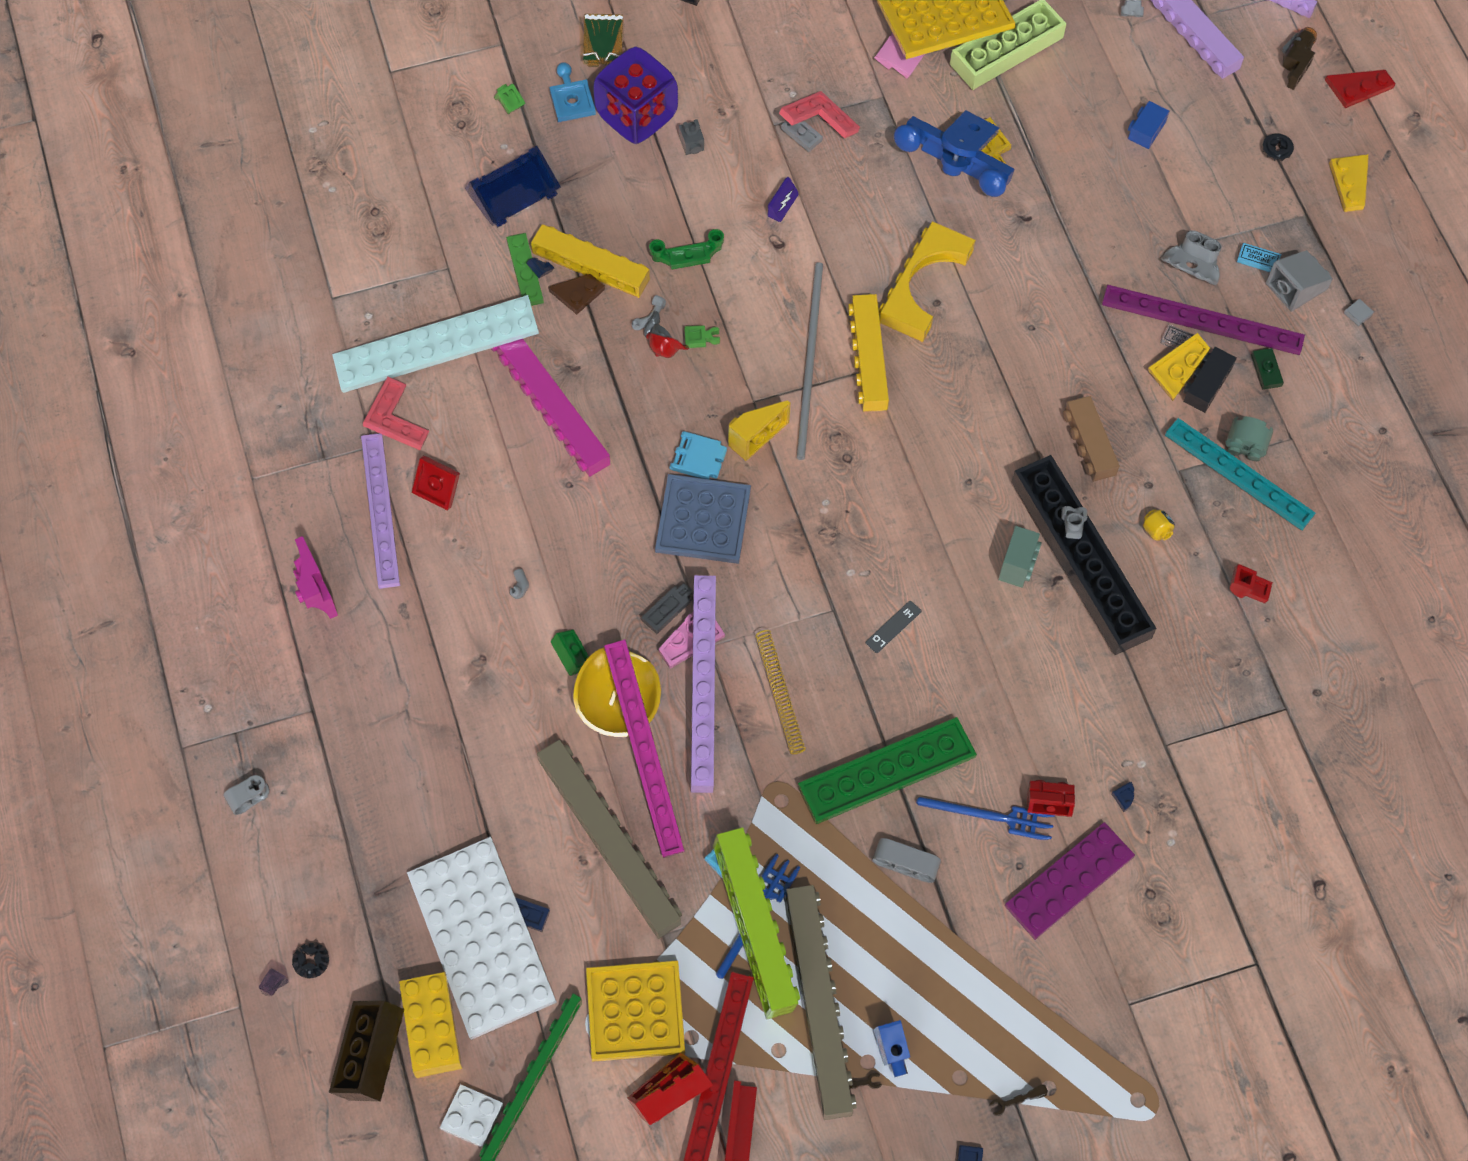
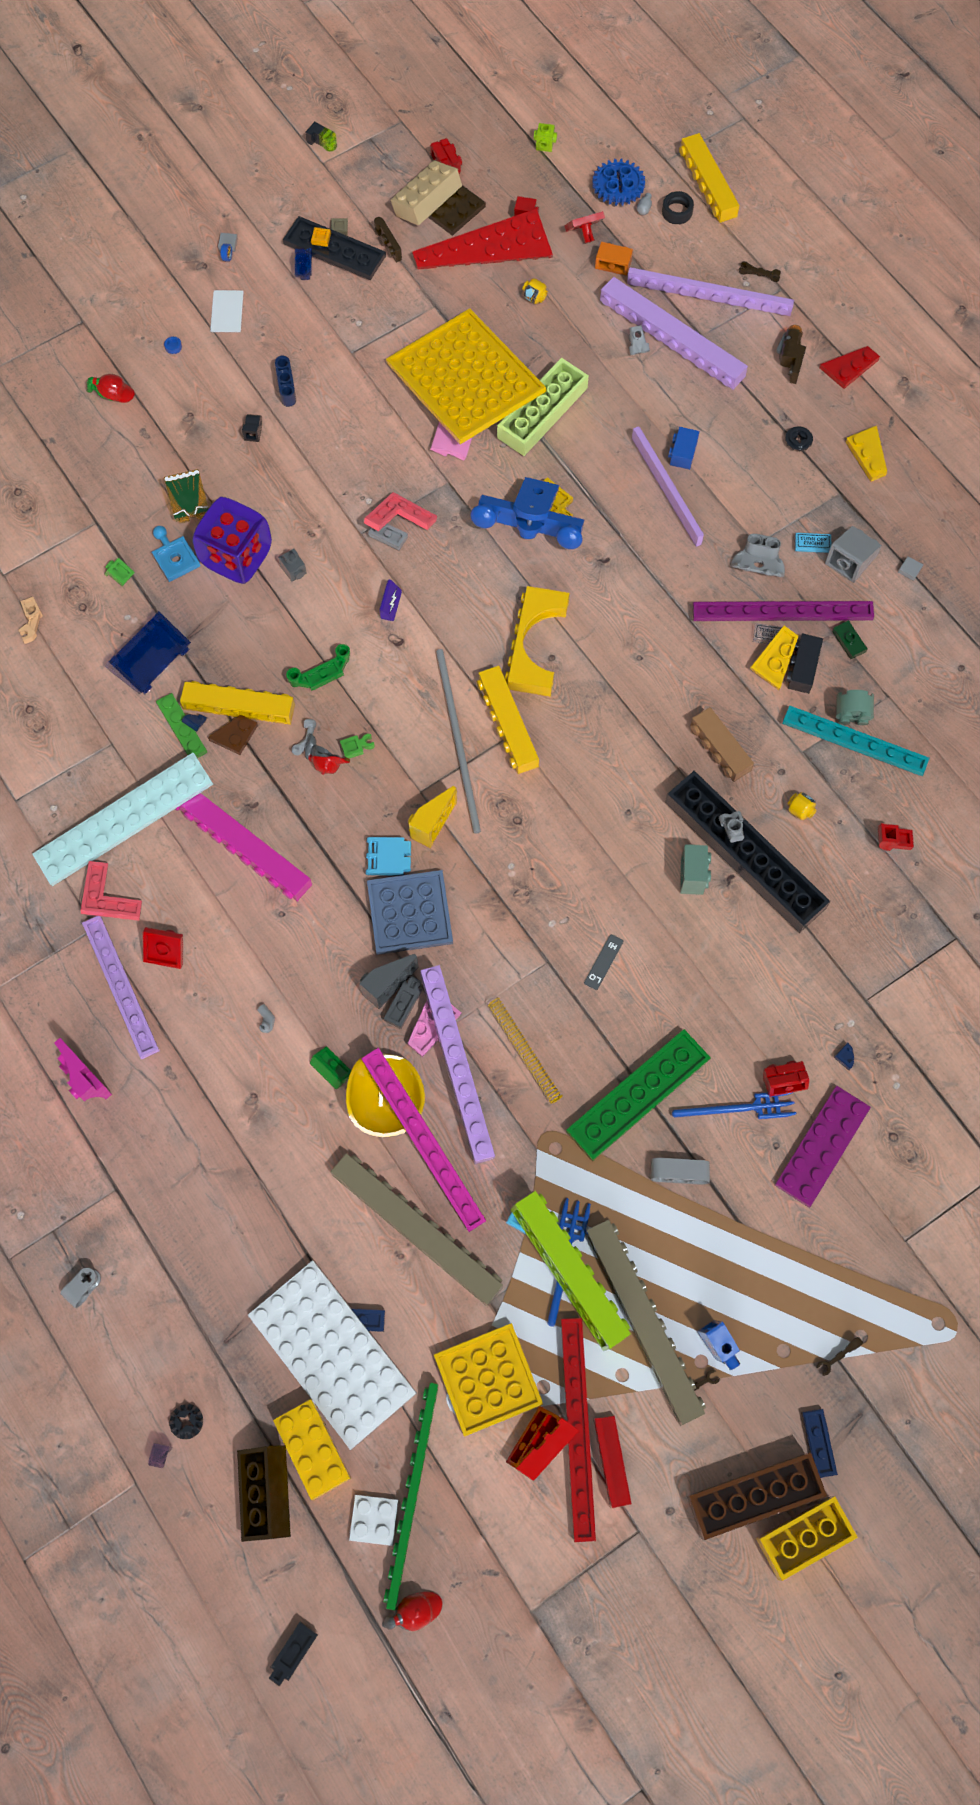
camera: 15 degrees left, 5 degrees up
(408, 109) = (29, 605): none -> light nougat piece
(657, 577) = (385, 980): none -> dark grey slope
(1117, 159) = (667, 486): none -> lavender tile

